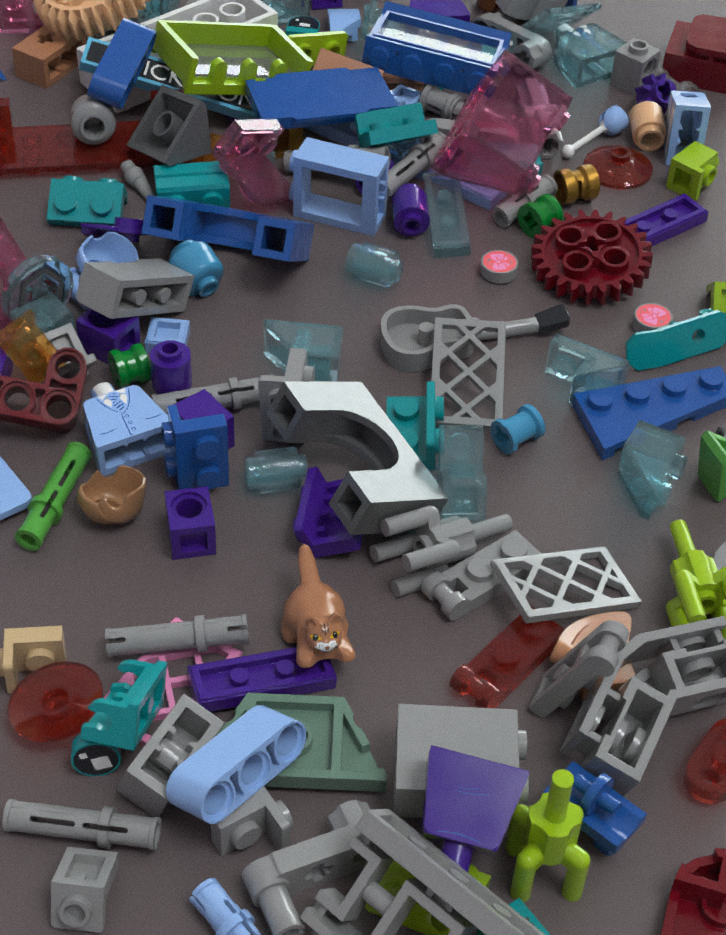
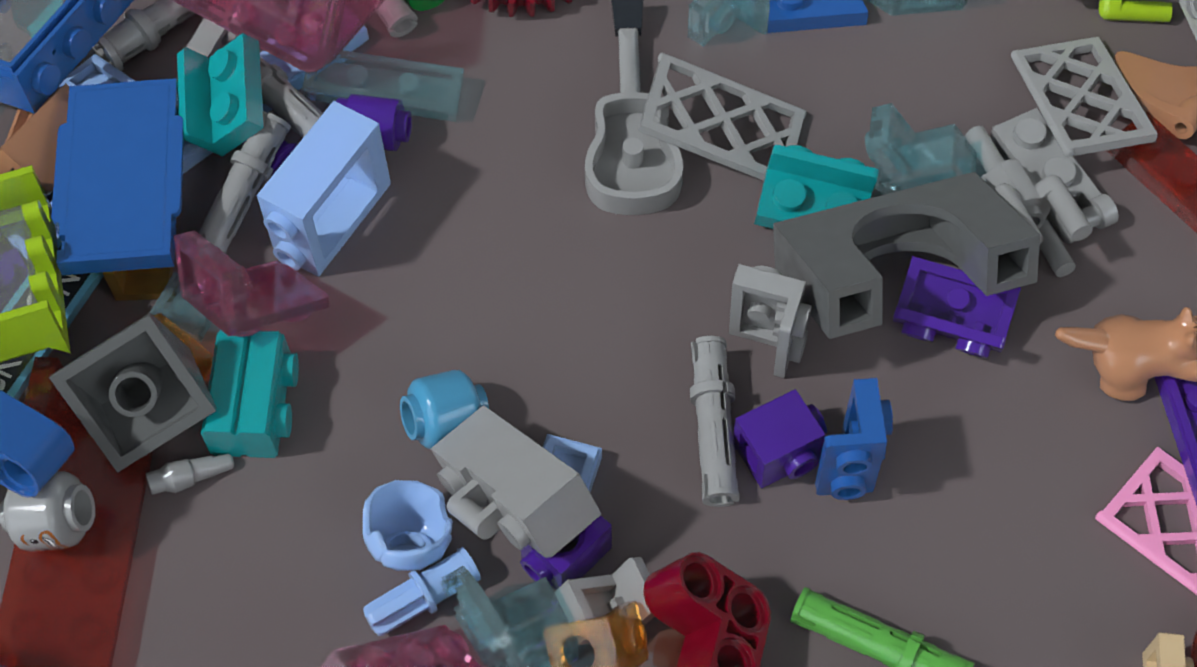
camera: 75 degrees left, 15 degrees up
(81, 201) = (236, 549): teal bracket -> none
(113, 498) = (905, 559): medium nougat hair -> none
(123, 427) = (771, 536): light blue torso -> none
(126, 227) = (337, 506): dark purple plate -> none
(129, 365) = (640, 519): green wheel -> none
(170, 367) = (670, 461): dark purple brick -> none
(177, 635) = (1152, 520): light grey pin -> none
(190, 522) = (971, 456): dark purple brick -> none
(198, 221) = (344, 395): blue arch -> none
(275, 470) = (873, 355): clear light blue brick -> none
(322, 343) = (651, 293): clear light blue slope -> none
(374, 264) = (481, 185): clear light blue brick -> none
(499, 266) = (502, 49): tile -> none
(517, 429) = (826, 89): dark azure bush -> none

